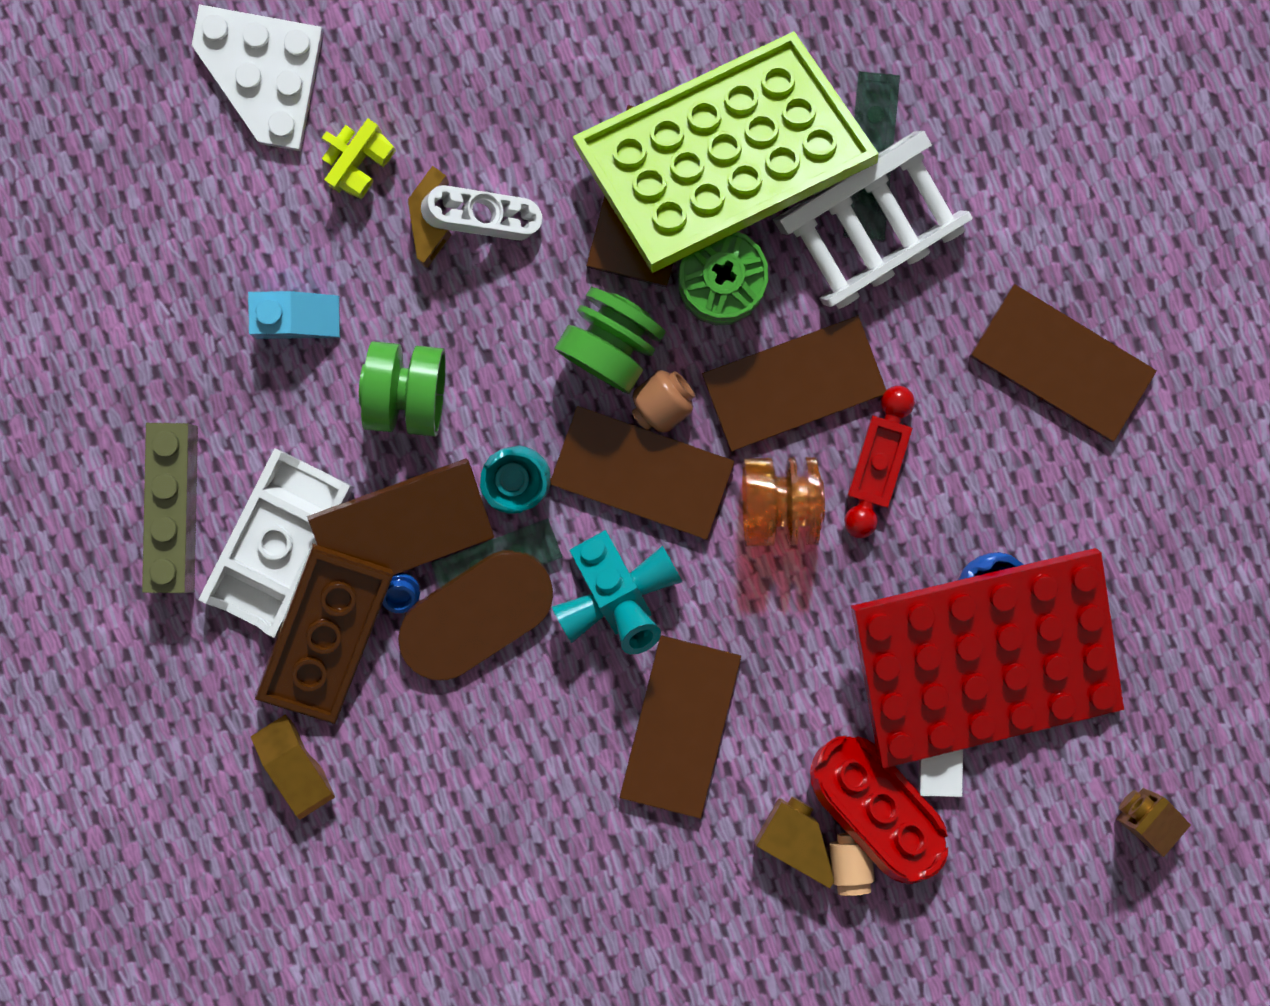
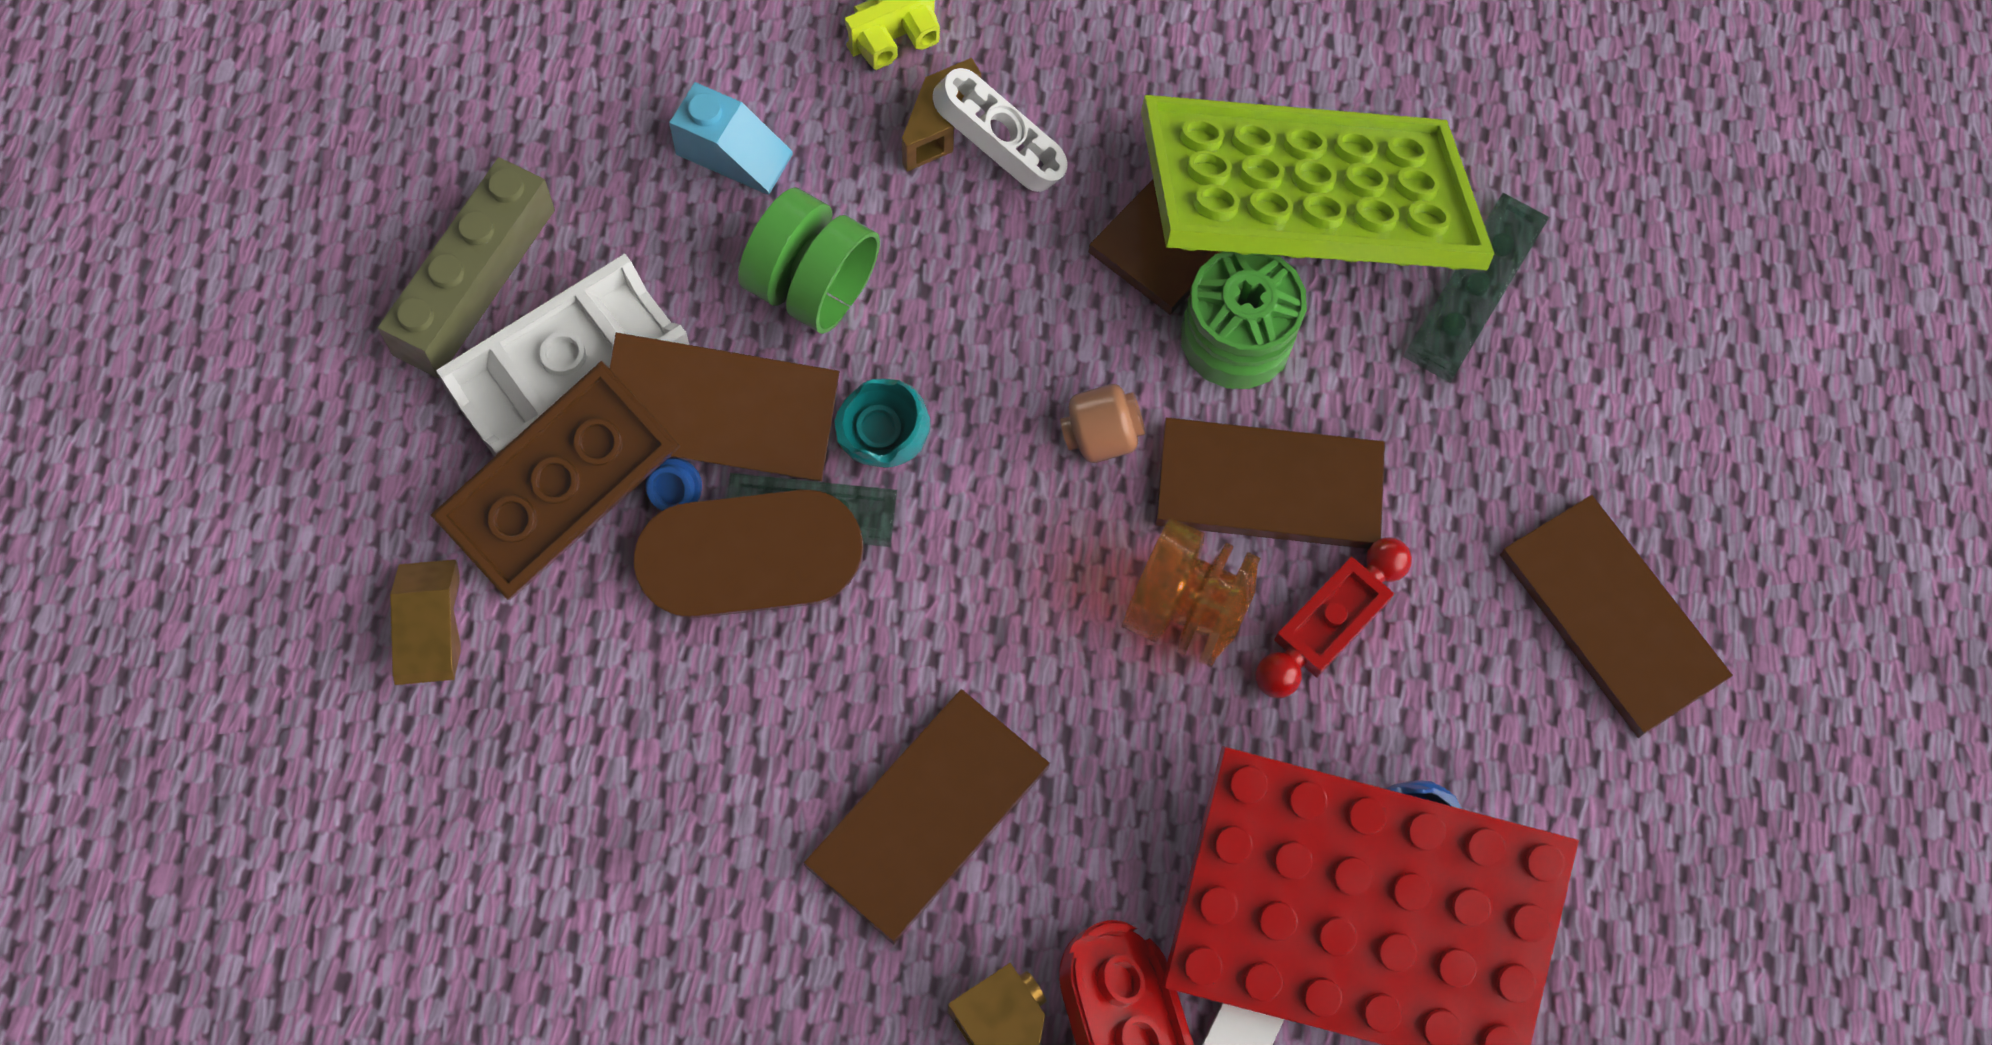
camera: 25 degrees right, 20 degrees down
(610, 339) = (1077, 319): bright green wheel -> none
(616, 594) = (934, 605): teal brick -> none
(641, 472) = (1037, 496): reddish brown tile -> none
(837, 199) = (1471, 292): white fence -> none

